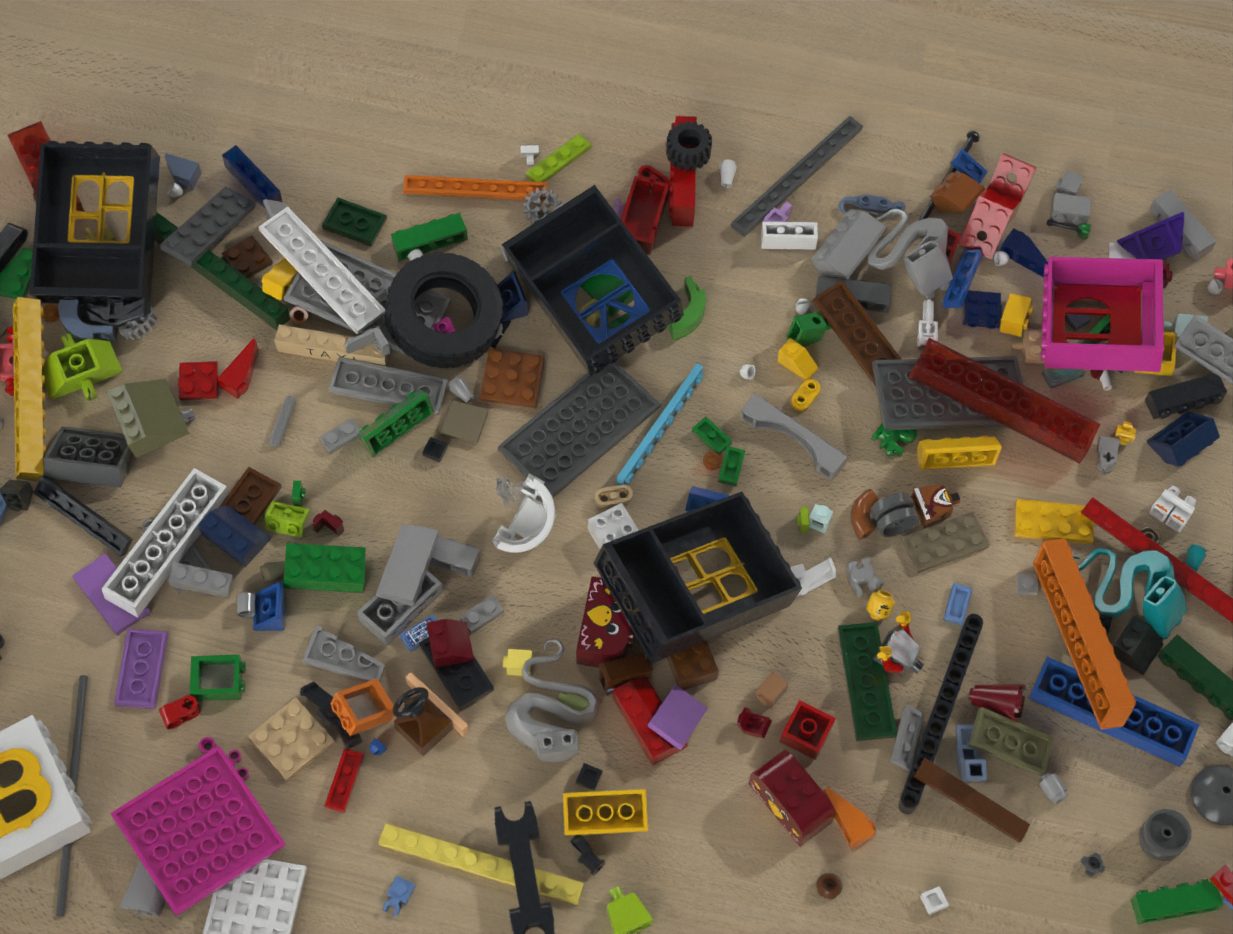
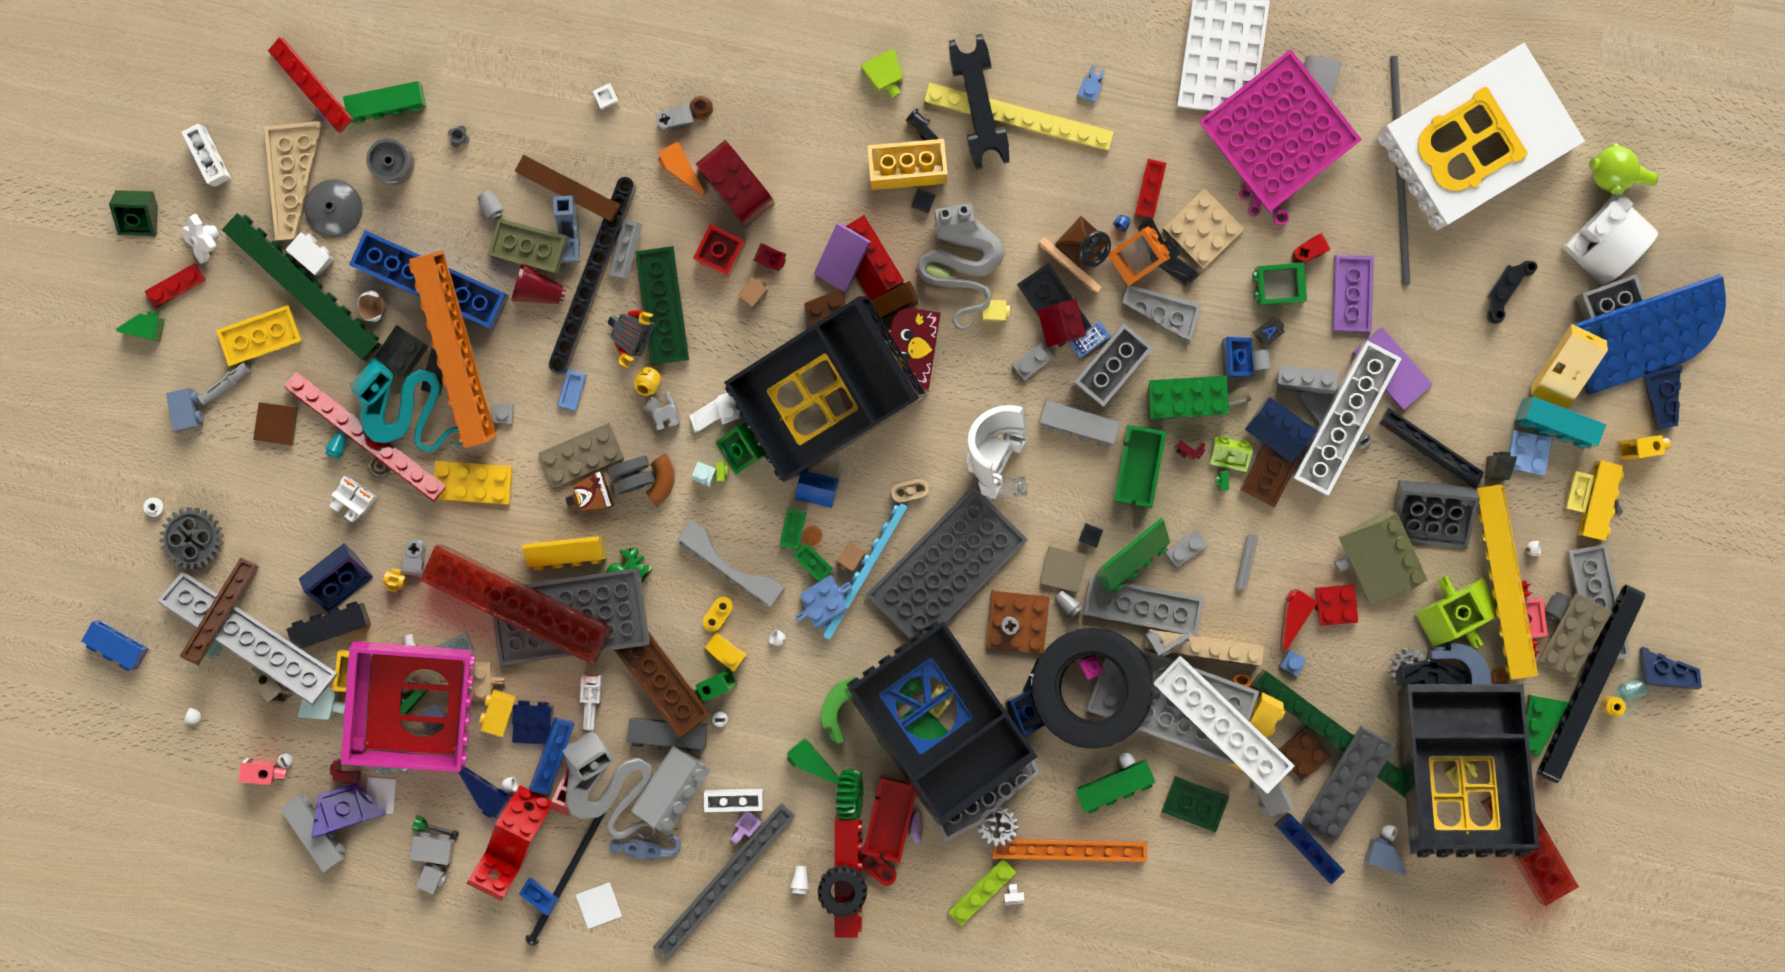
camera: 175 degrees left, 25 degrees up
(234, 631) = (1269, 331): none -> clear smoke brick
(247, 333) = (1292, 662): none -> medium blue plate
(381, 506) = (1139, 466): none -> green piece
(408, 564) = (1108, 397): light grey slope -> none
(523, 367) = (1014, 629): none -> light grey bush
(611, 525) = (908, 450): white brick -> none
(674, 438) = (850, 557): none -> medium nougat brick
(680, 231) = (849, 794): none -> green gear
(701, 397) = (824, 601): none -> medium blue plate
(715, 266) = (809, 760): none -> green slope
(786, 539) = (740, 448): none -> green slope
(853, 873) = (677, 118): none -> light grey piece
(913, 163) = (598, 905): none -> white sticker
(956, 193) = (553, 858): dark orange slope -> none
(1171, 689) = (371, 306): none -> medium nougat hair

